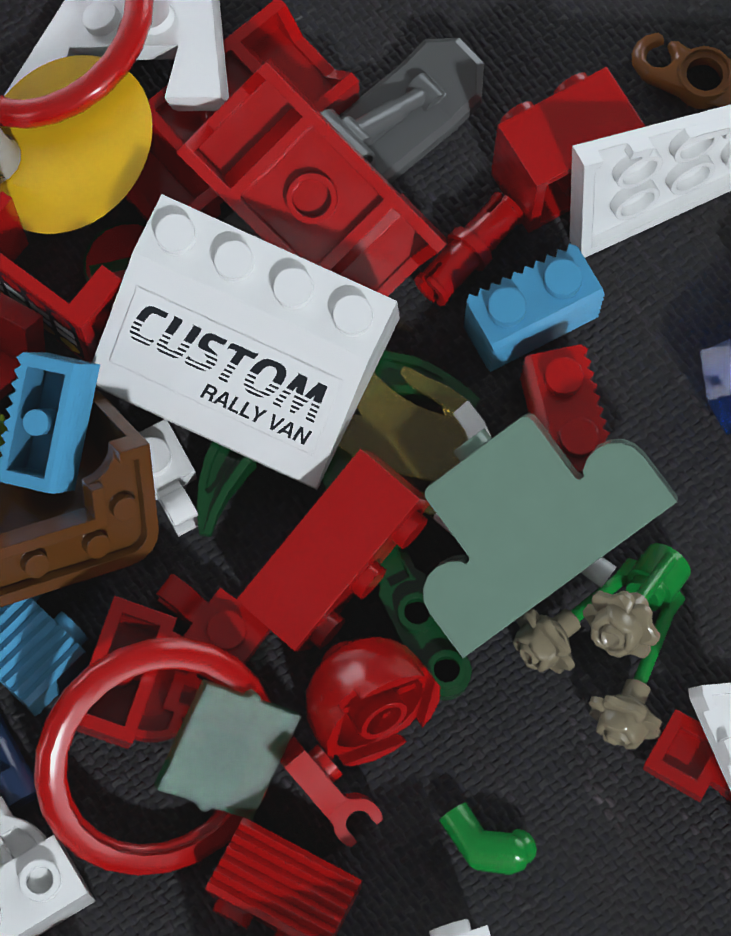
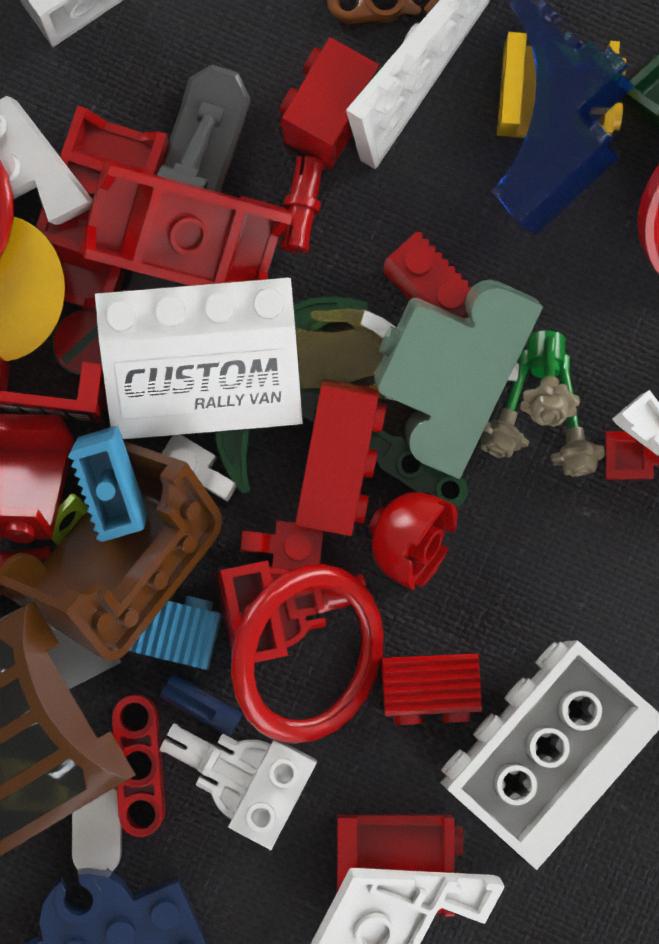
camera: 35 degrees left, 10 degrees up
(227, 750) = (349, 624): piece -> none
(316, 776) = (411, 606): red plate -> none
(485, 849) = (540, 586): green arm -> none
(533, 307) = (367, 222): dark azure brick -> none

